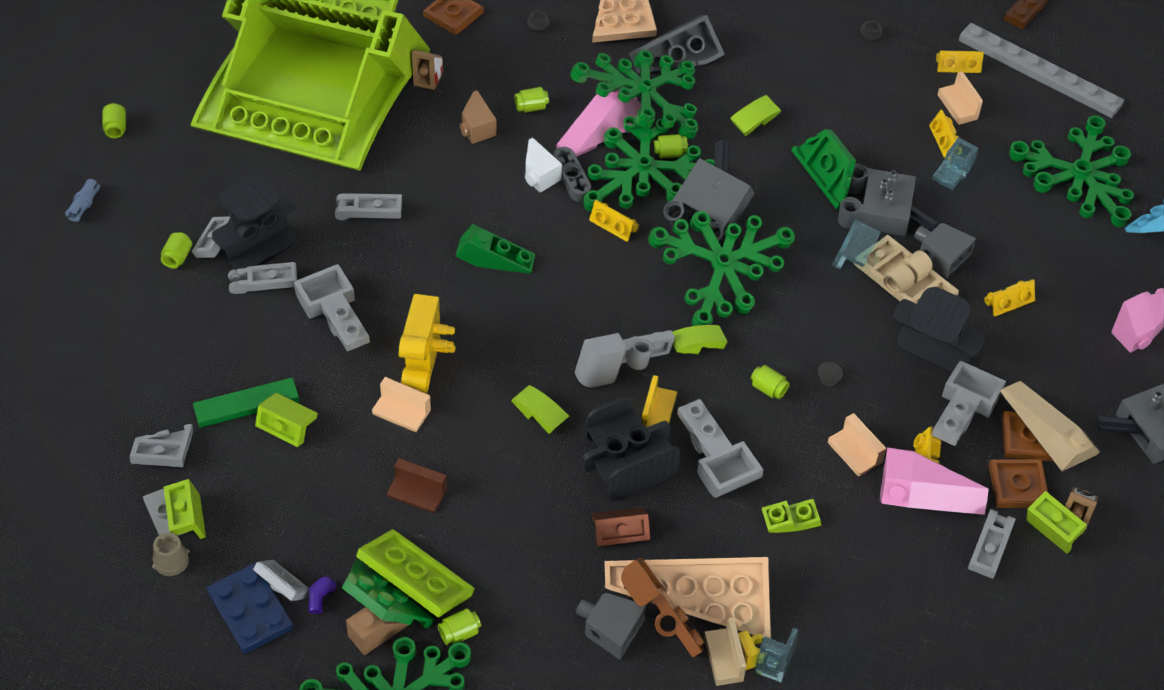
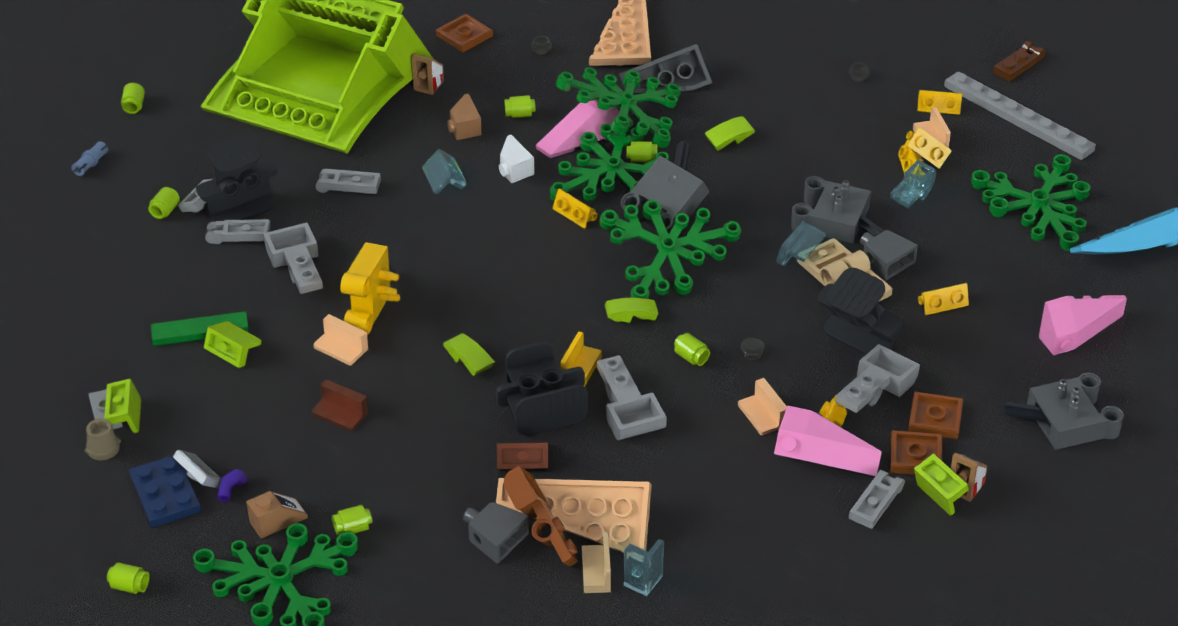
camera: 10 degrees right, 10 degrees down
(162, 448) = (115, 357): light grey wing -> none
(382, 597) = (286, 490): green wing -> none
(415, 572) = (321, 472): lime plate -> none
(467, 186) = (443, 170): none -> clear light blue panel
(493, 252) = (454, 225): green slope -> none
(571, 182) = (546, 162): dark grey beam -> none
(604, 355) = (537, 310): light grey plate -> none
(749, 649) = (617, 563): yellow tile -> none
(791, 518) = (680, 462): lime slope -> none
(827, 164) = (788, 174): green wing -> none
(961, 118) = (927, 147): none -> yellow hinge
(1056, 433) = (959, 411): tan wedge -> none

